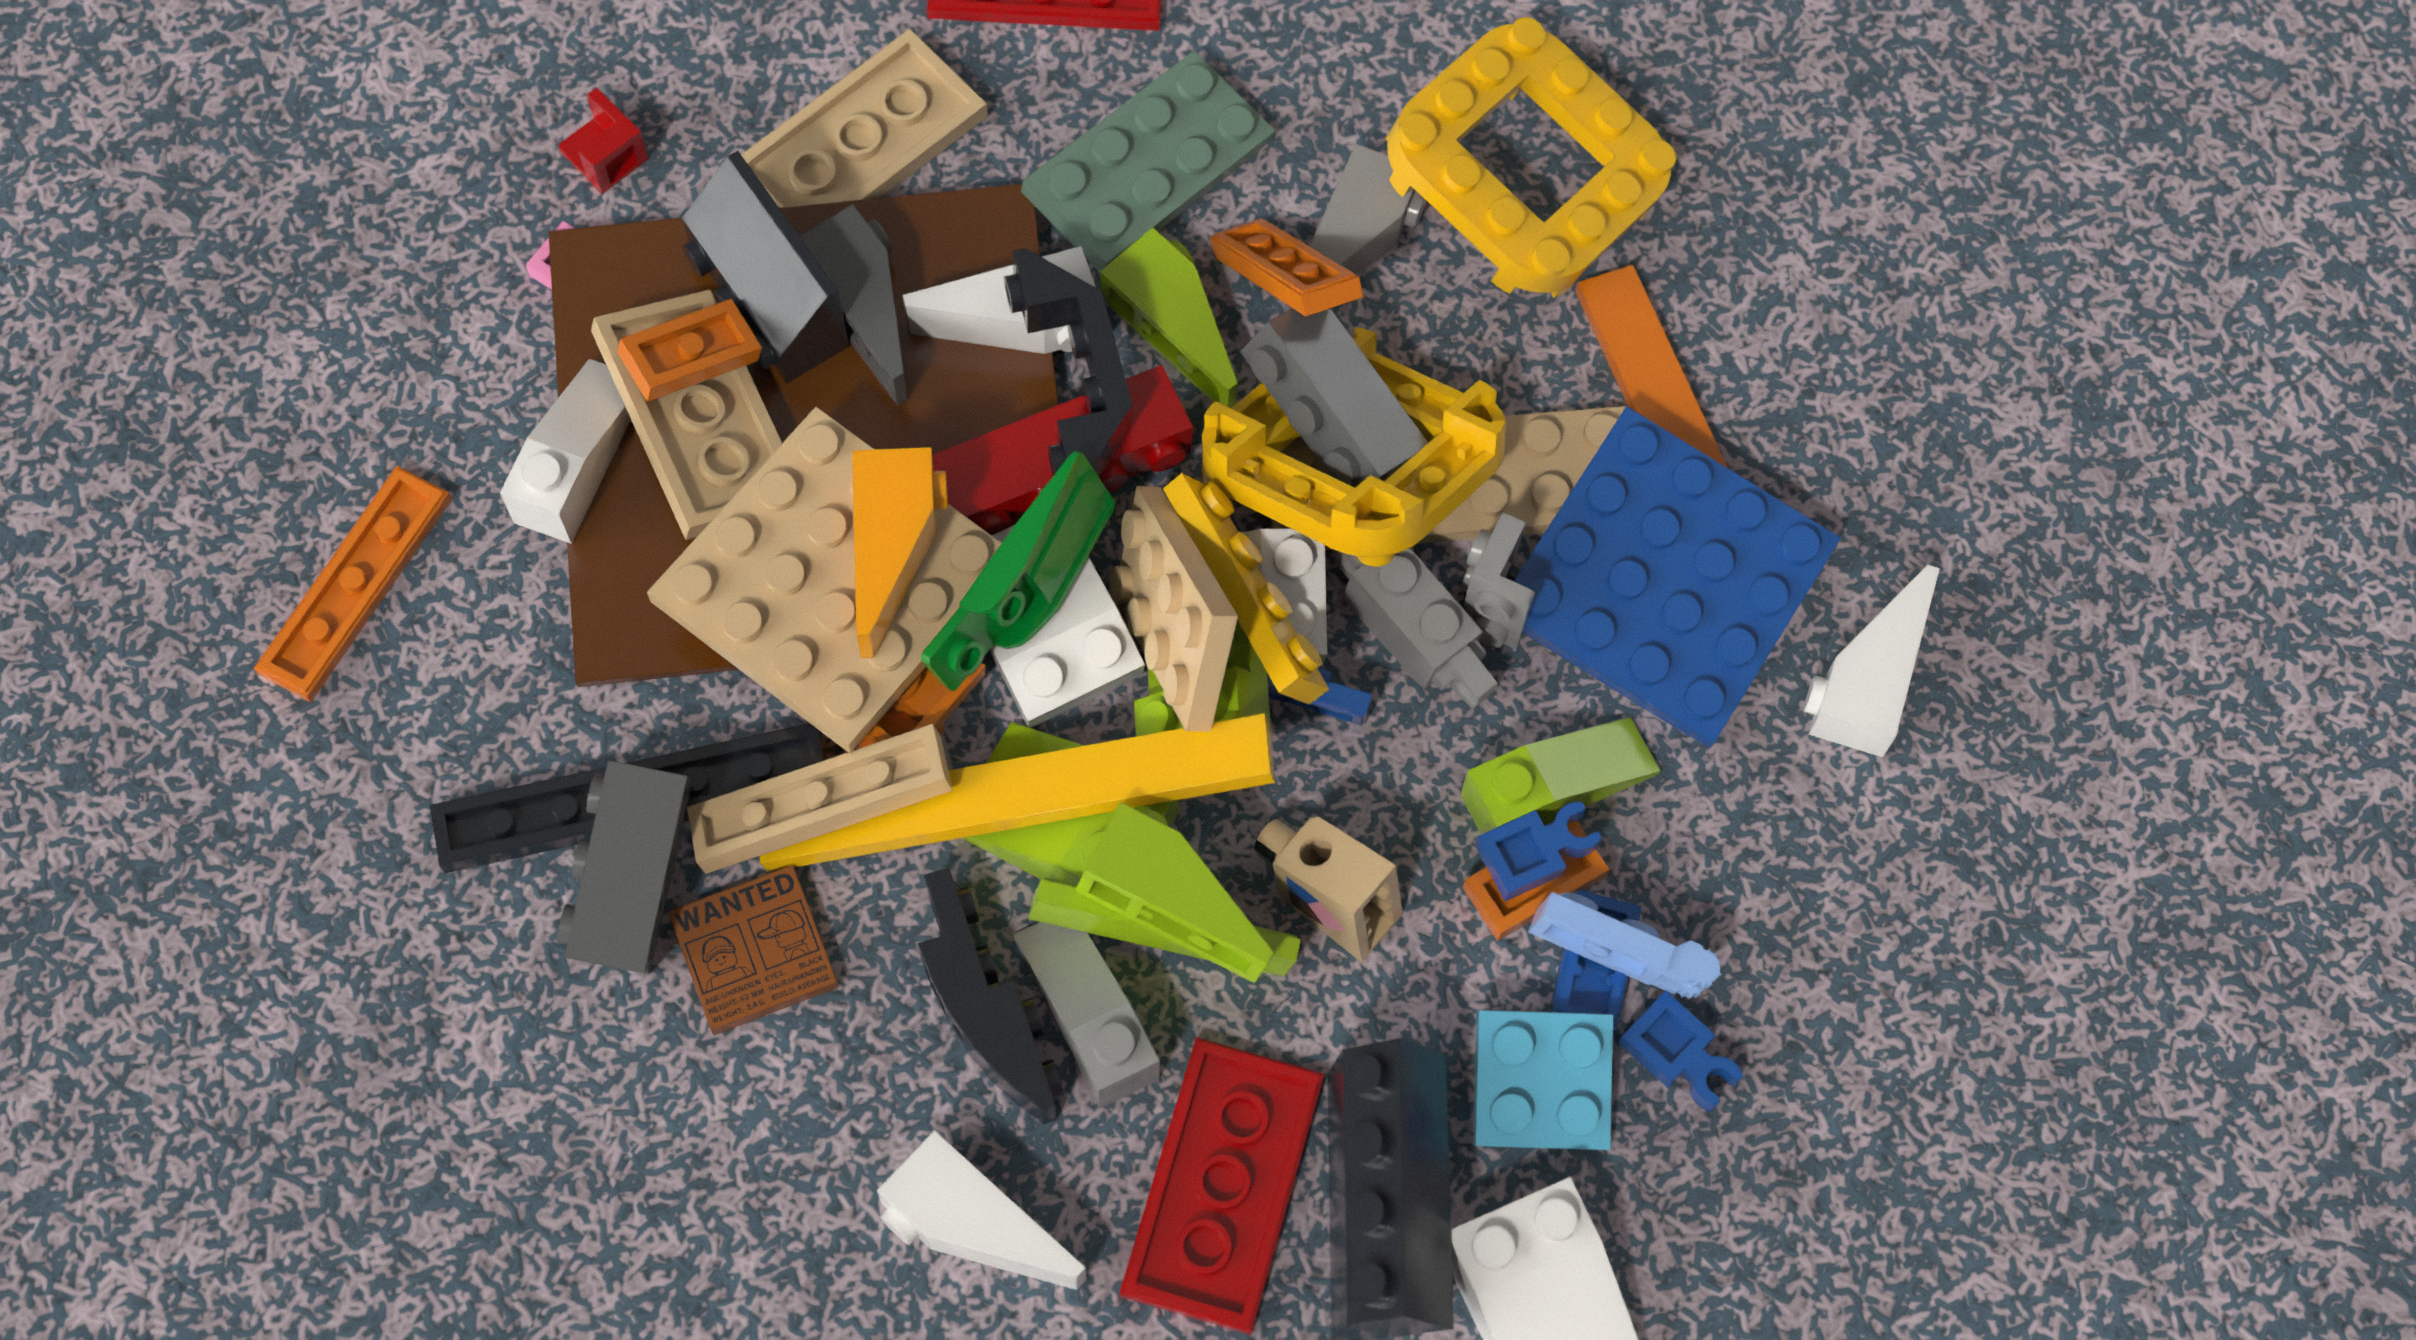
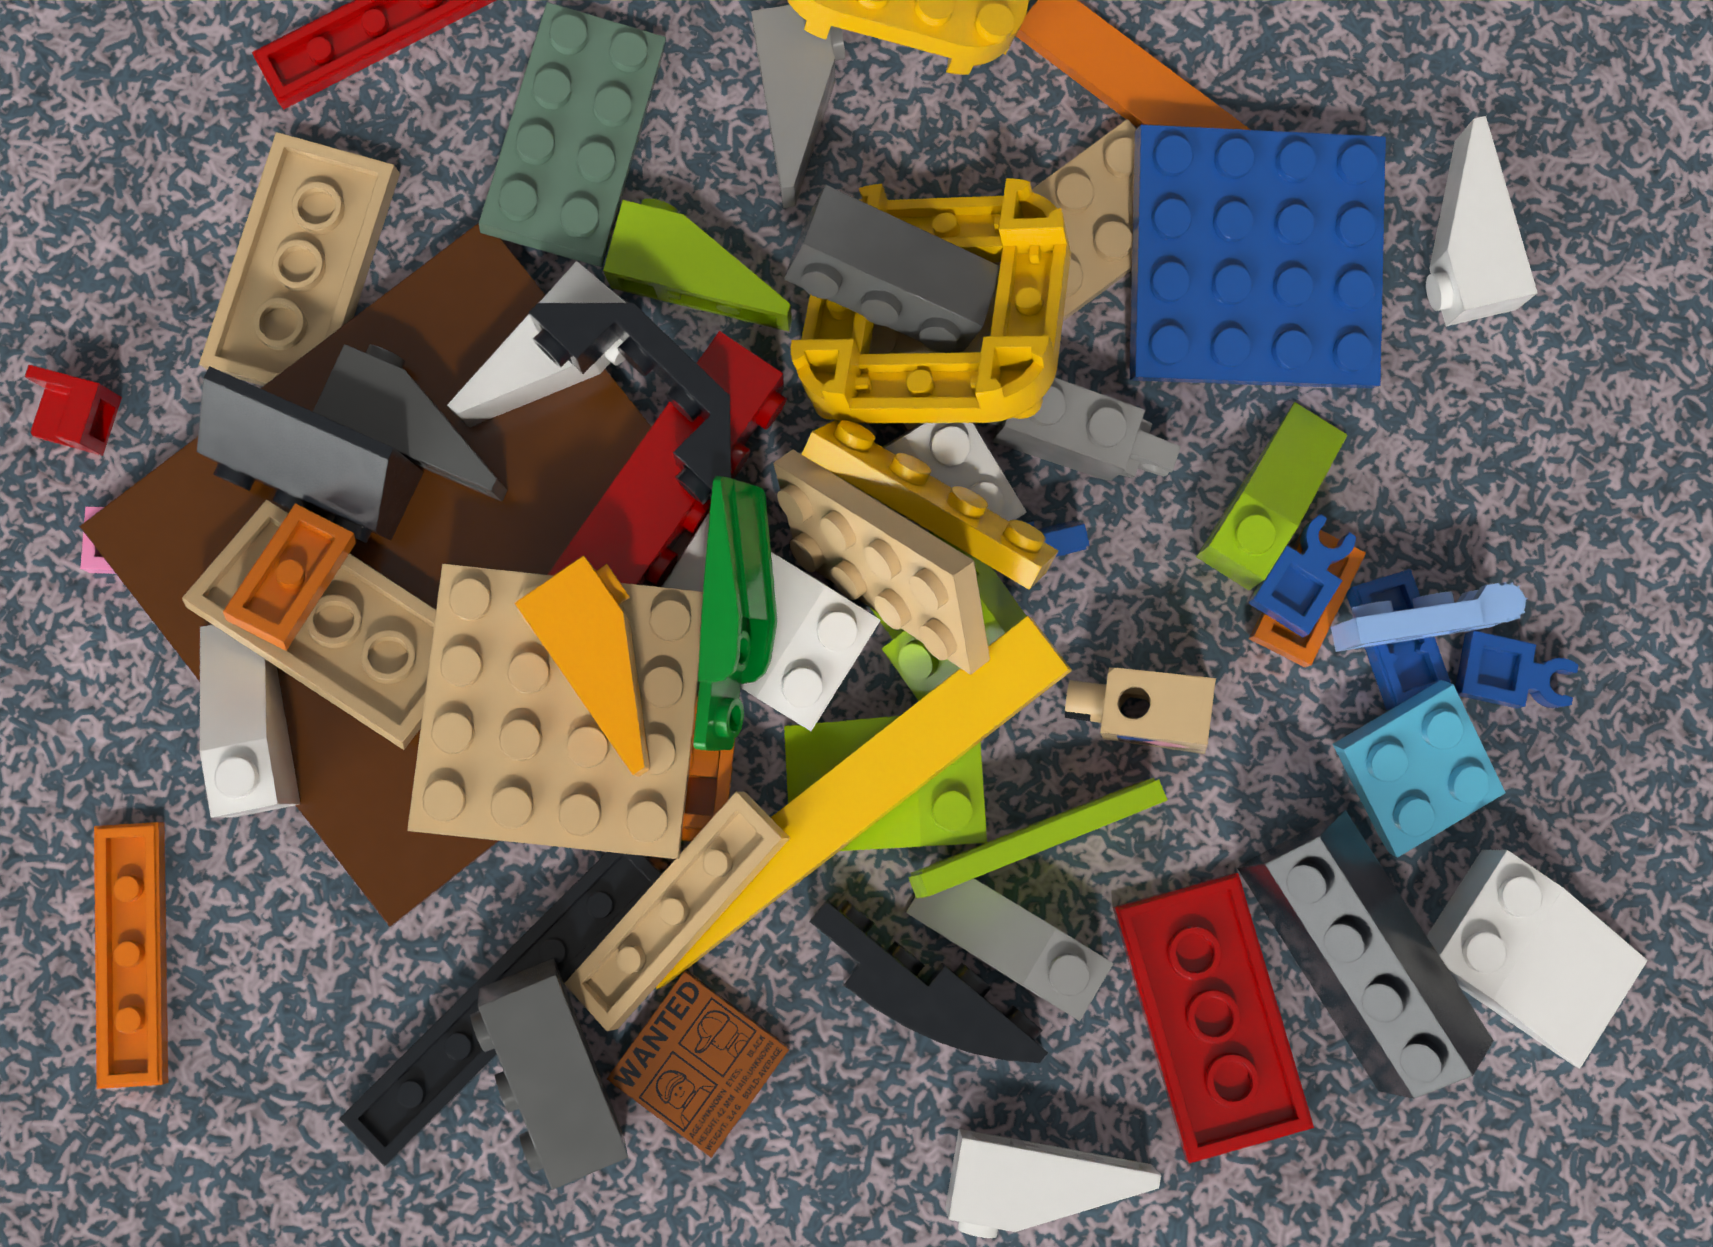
camera: 30 degrees left, 15 degrees up
(1165, 886) = (1028, 816): lime slope -> none
(1286, 267) = (773, 172): orange tile -> none
(1491, 598) = (1118, 357): light grey bracket -> none

